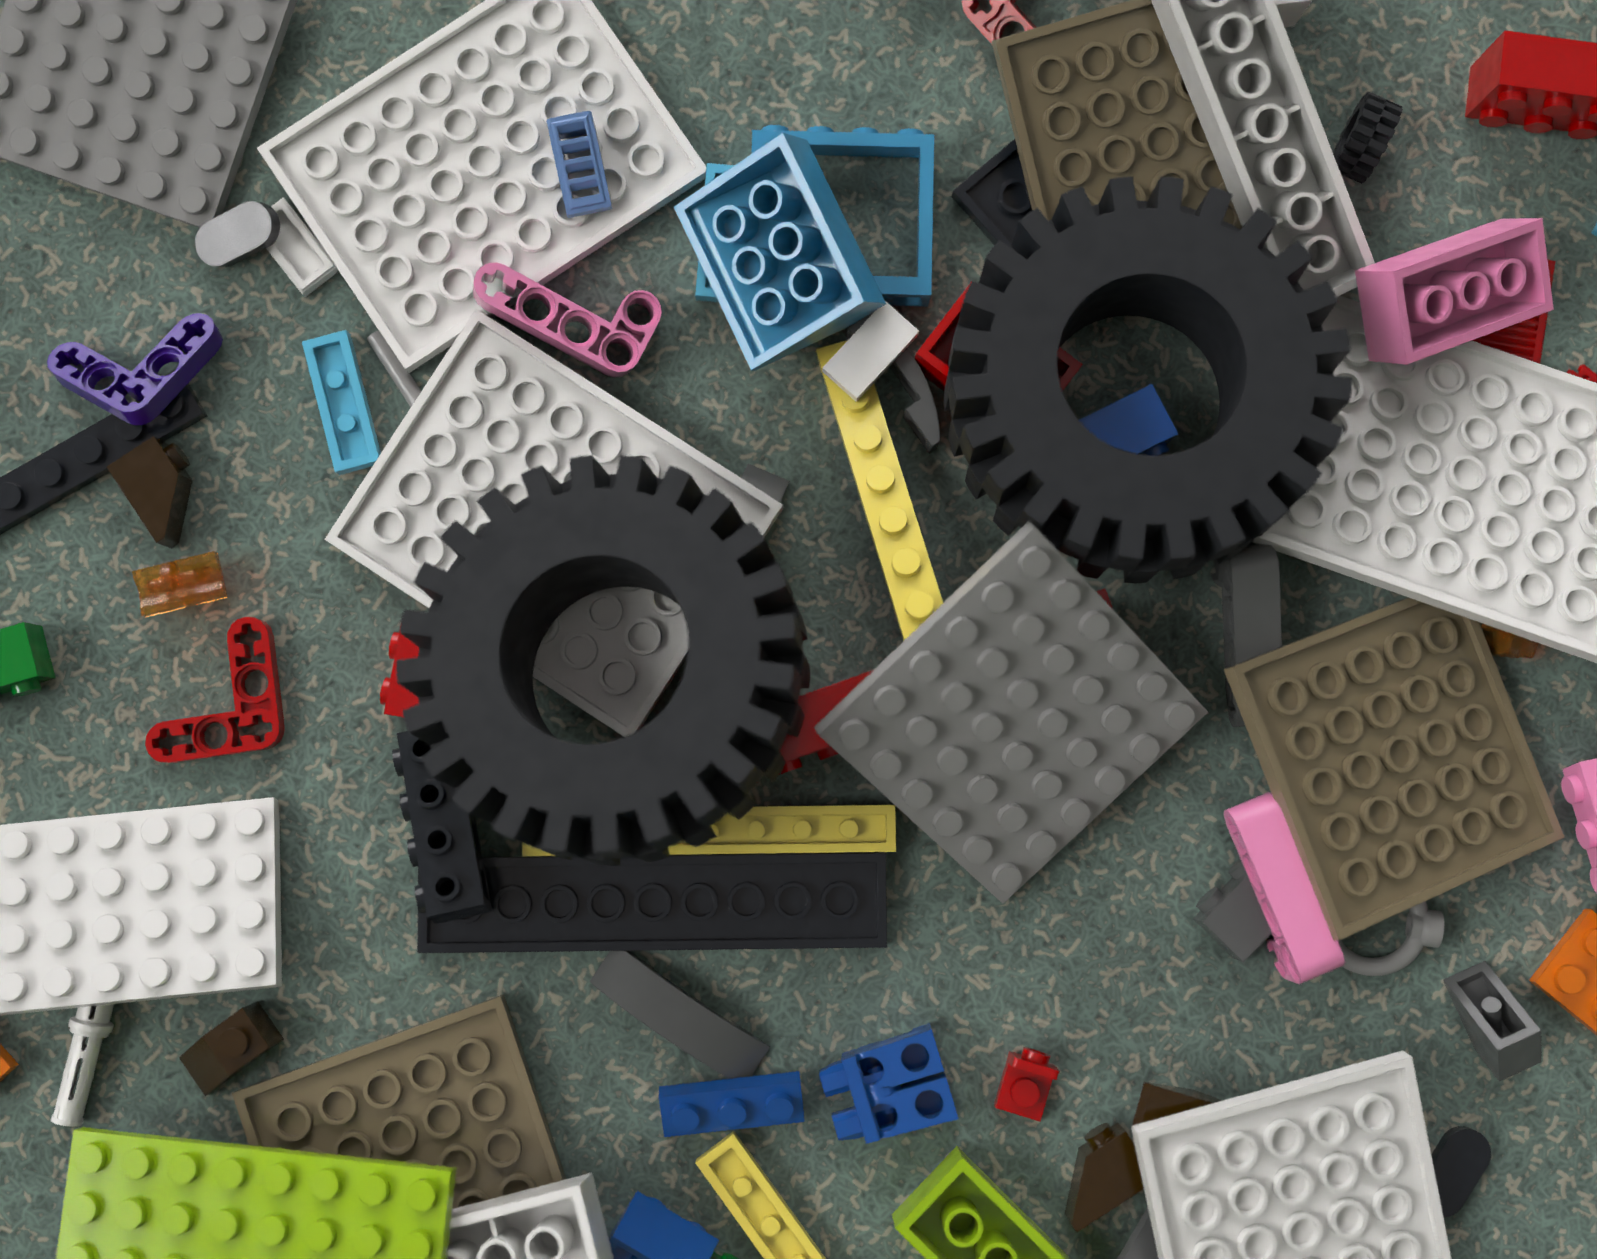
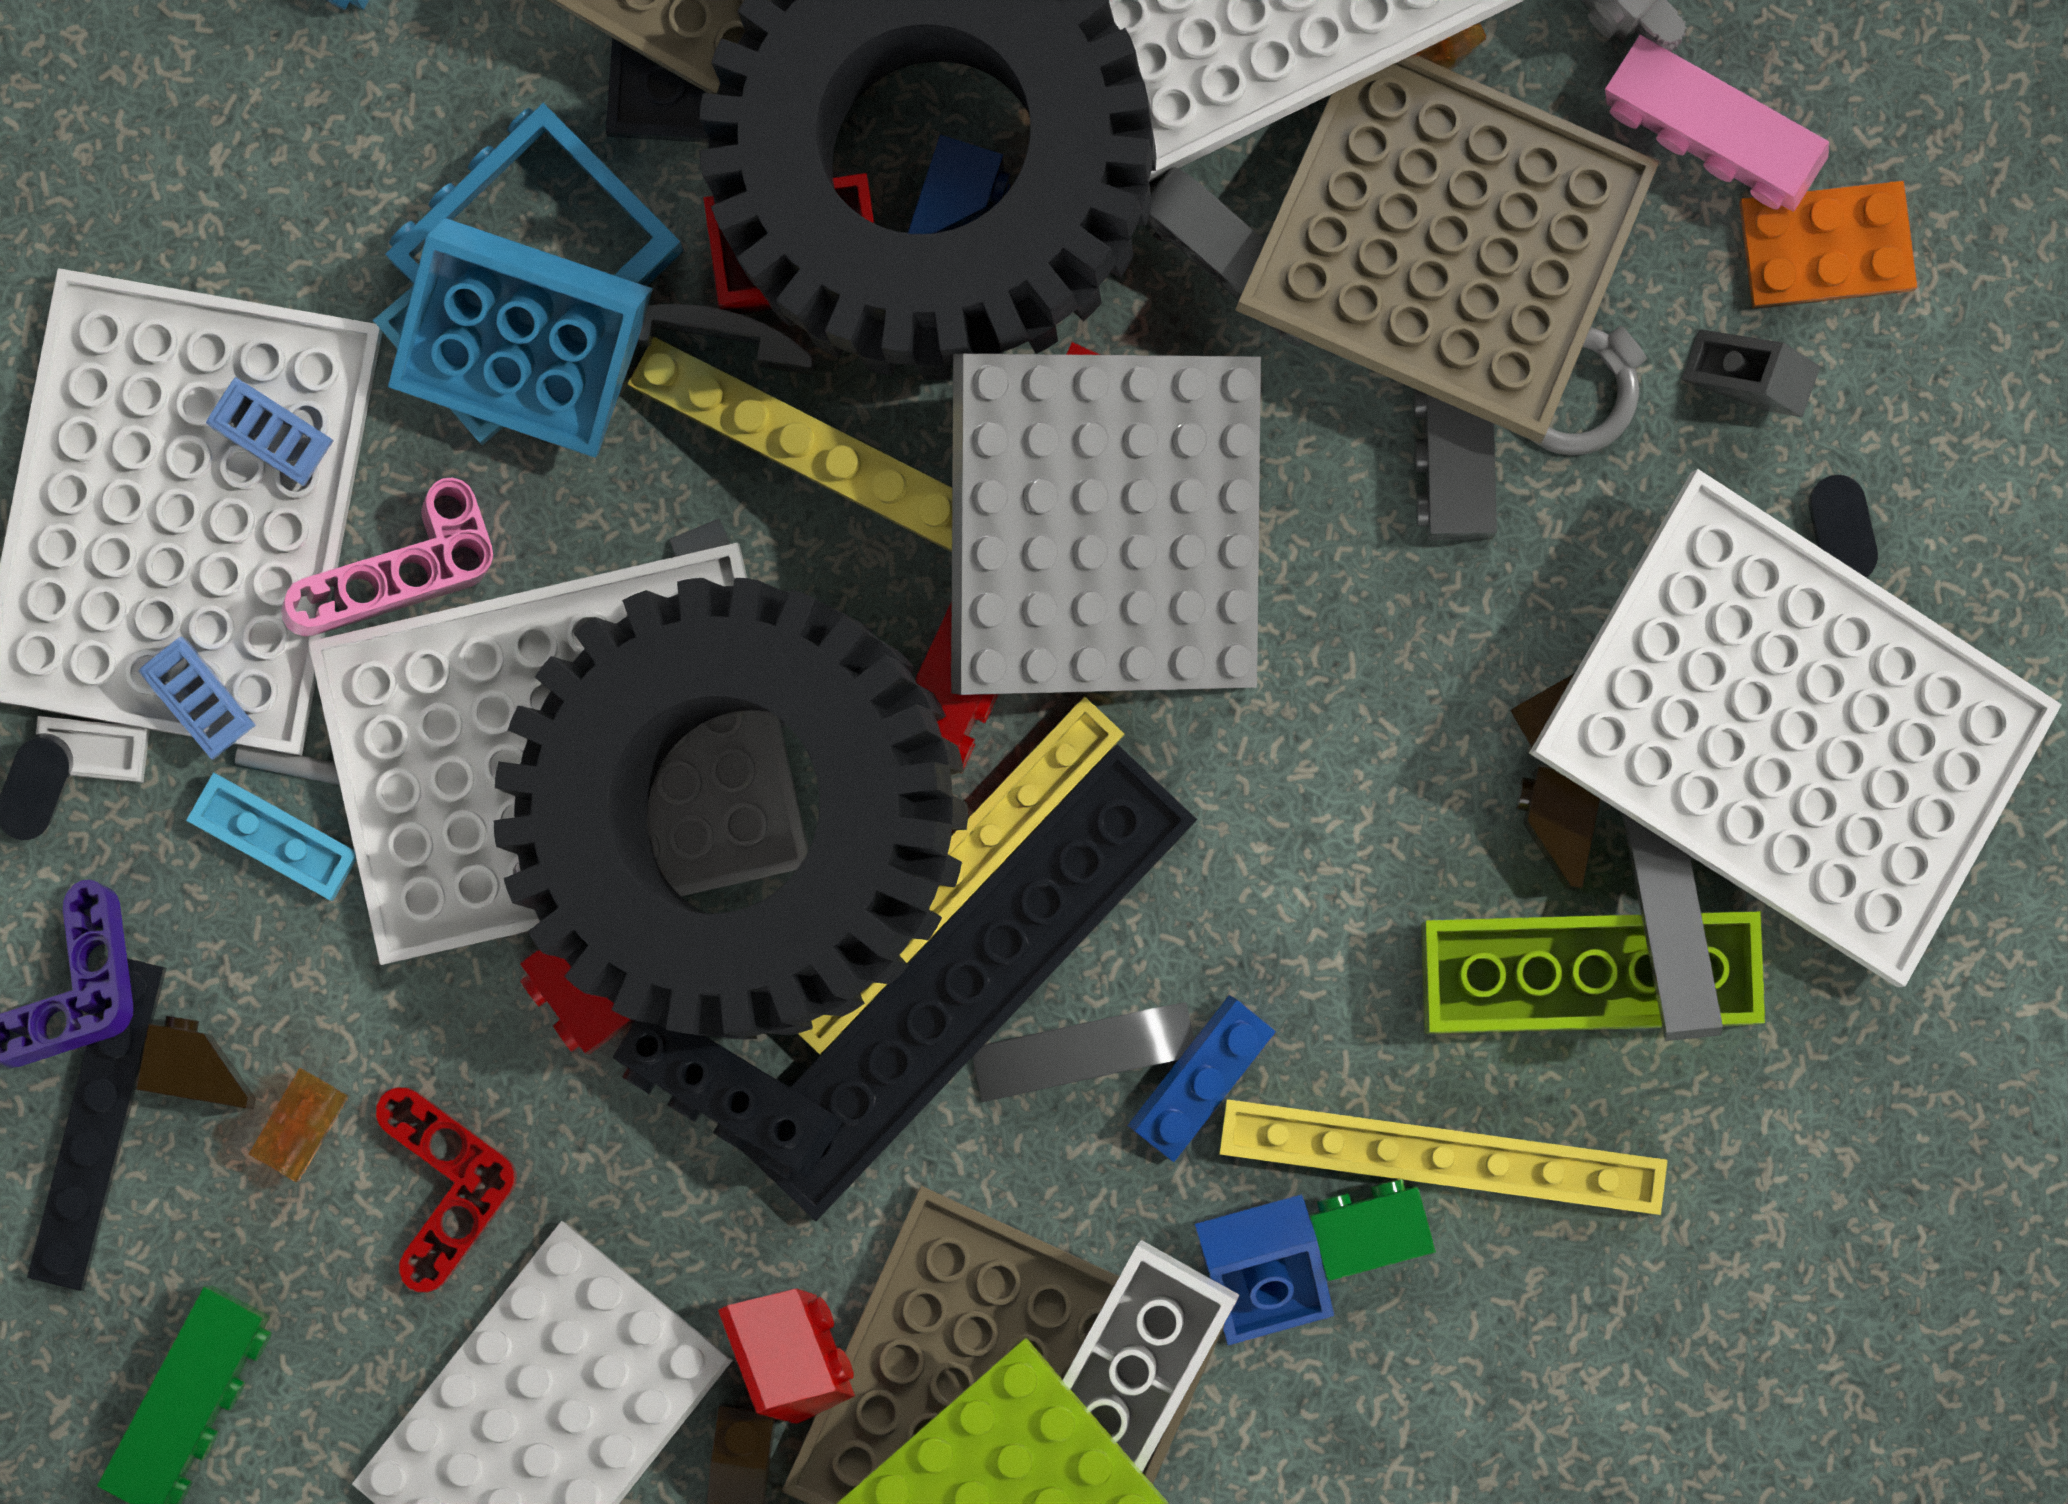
camera: 40 degrees left, 0 degrees up
(312, 1019) = (788, 1354): none -> slope
(365, 254) = (167, 692): none -> medium blue slope
(870, 351) = (679, 341): white tile -> none
(894, 1087) = (1314, 946): blue hips -> none
(1026, 1083) = (1425, 814): red bracket -> none
(1283, 890) = (1465, 440): bright pink beam -> none

